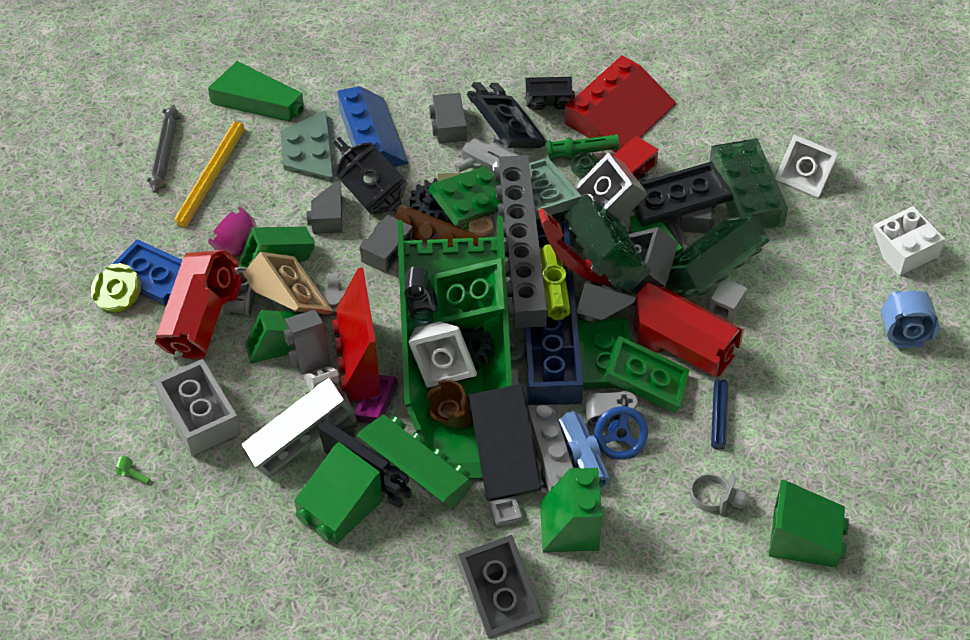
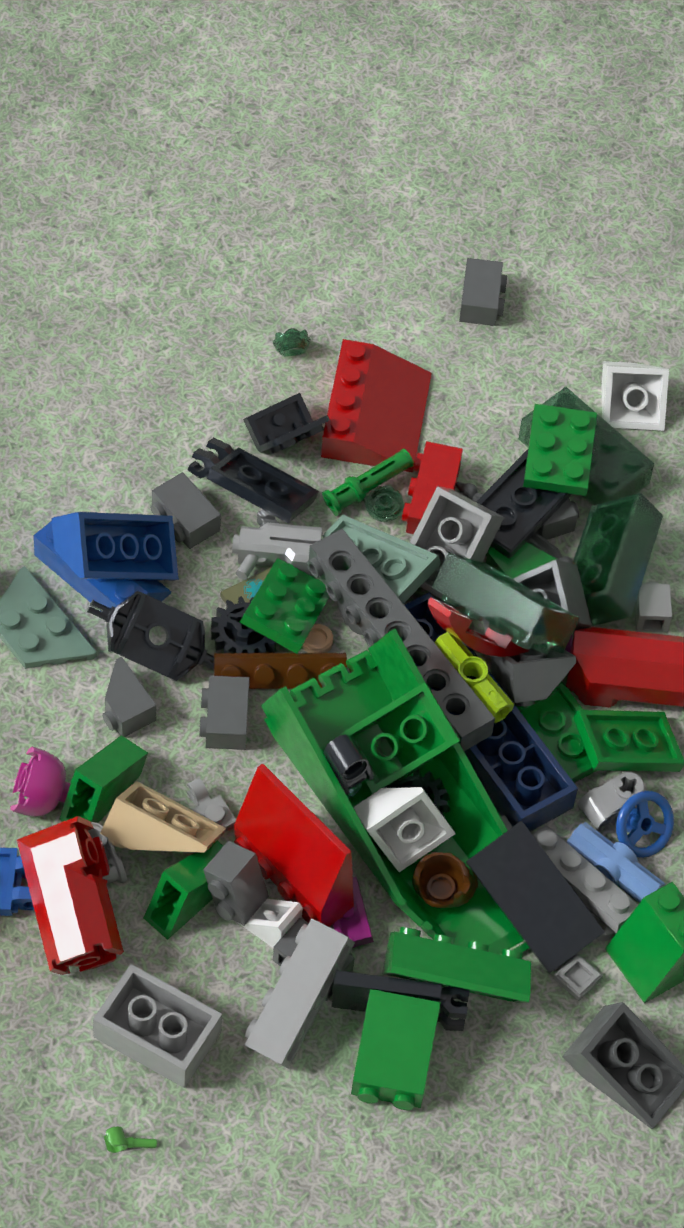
camera: 35 degrees left, 5 degrees up
(380, 112) = (117, 545): none -> blue slope
(591, 49) = (291, 342): none -> clear green plate
(722, 171) = (560, 449): none -> green plate
(743, 66) = (481, 292): none -> dark grey brick

